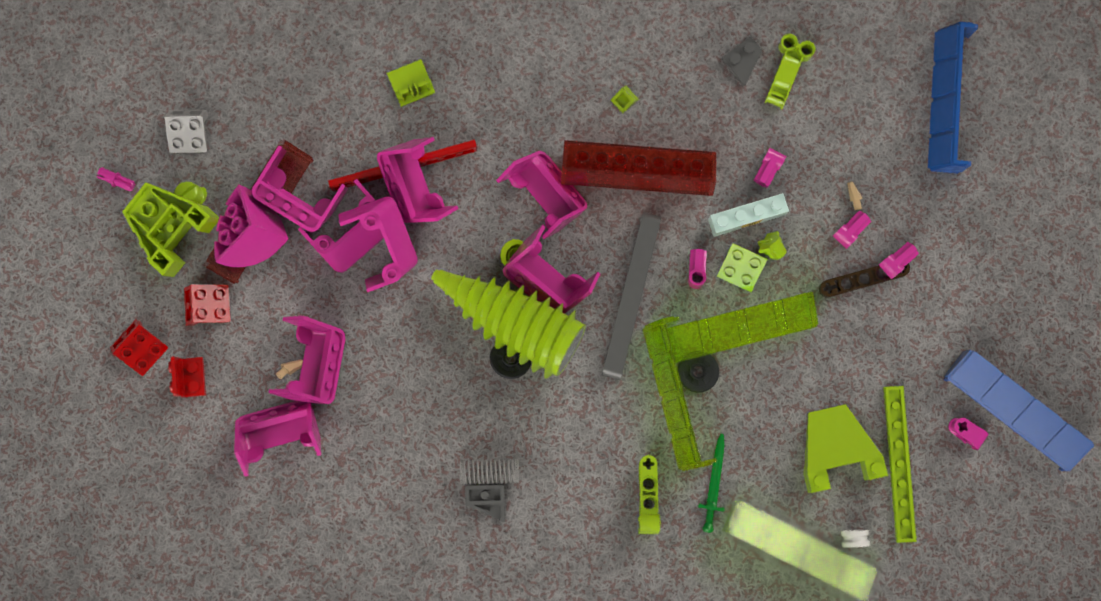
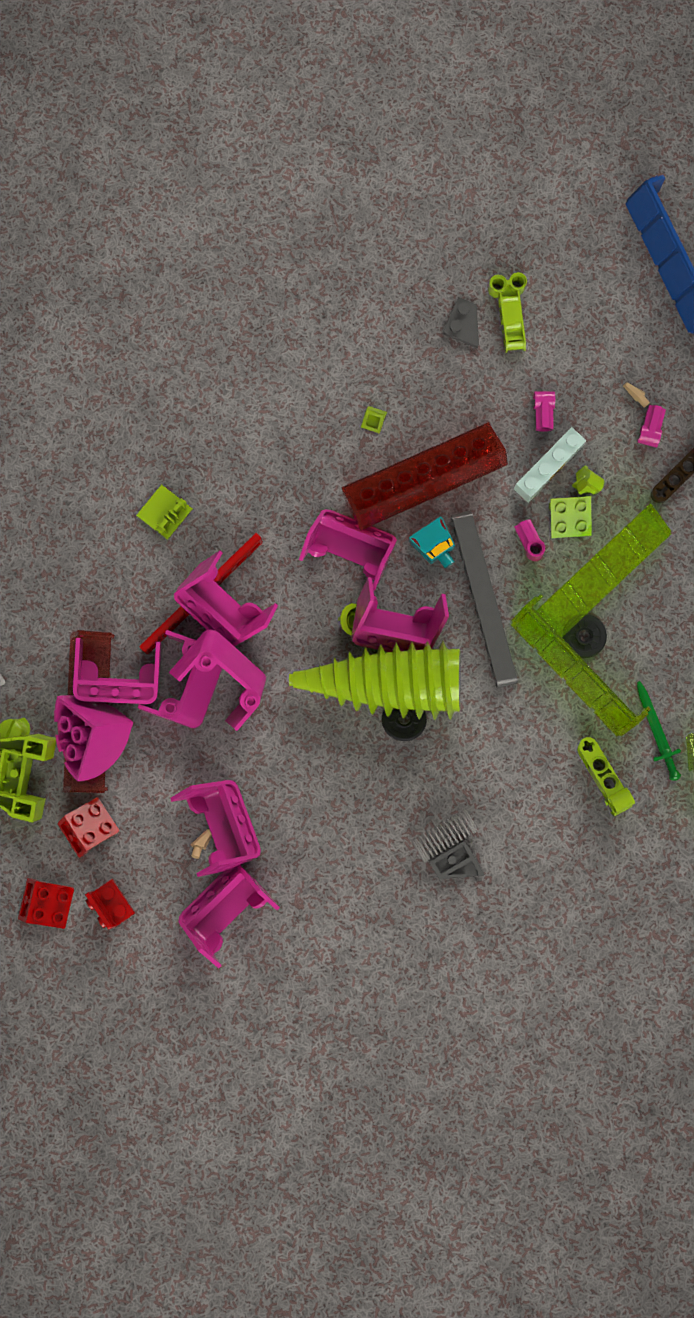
camera: 25 degrees left, 0 degrees up
(616, 227) = (434, 543): none -> teal torso

